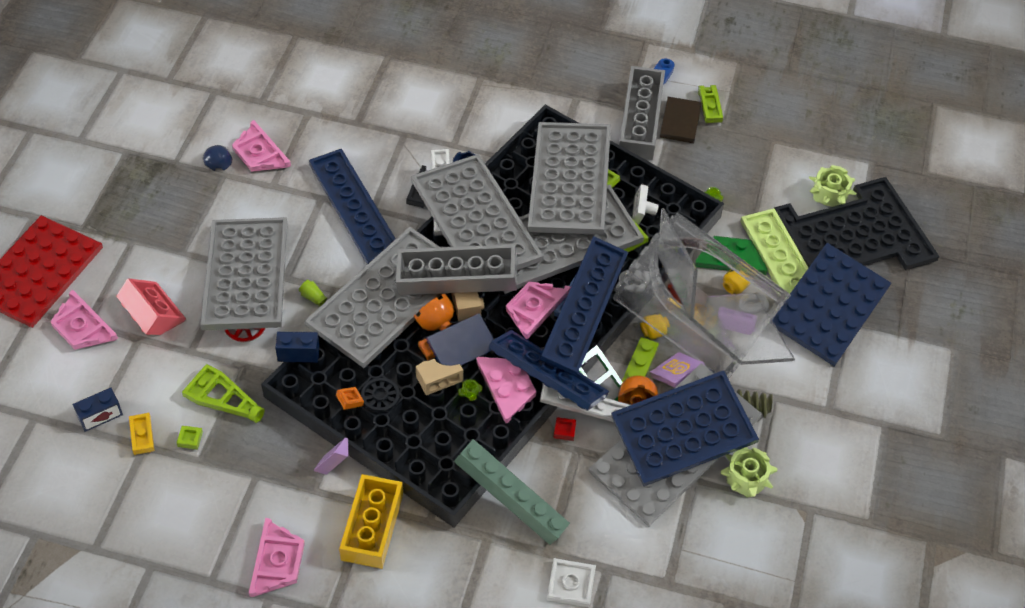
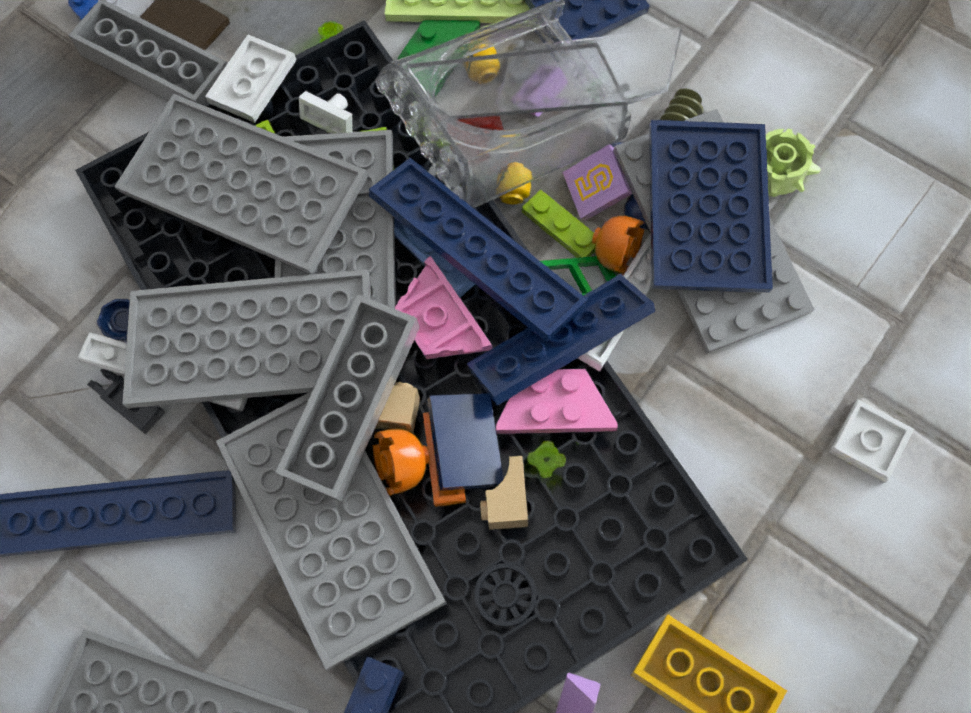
camera: 60 degrees left, 15 degrees up
(312, 292) = (251, 635): lime cone -> none
(349, 398) = (497, 644): orange tile -> none
(512, 492) = (733, 466): sand green brick -> none
(565, 429) = (633, 358): red plate -> none
(647, 160) = (251, 78): none -> white plate

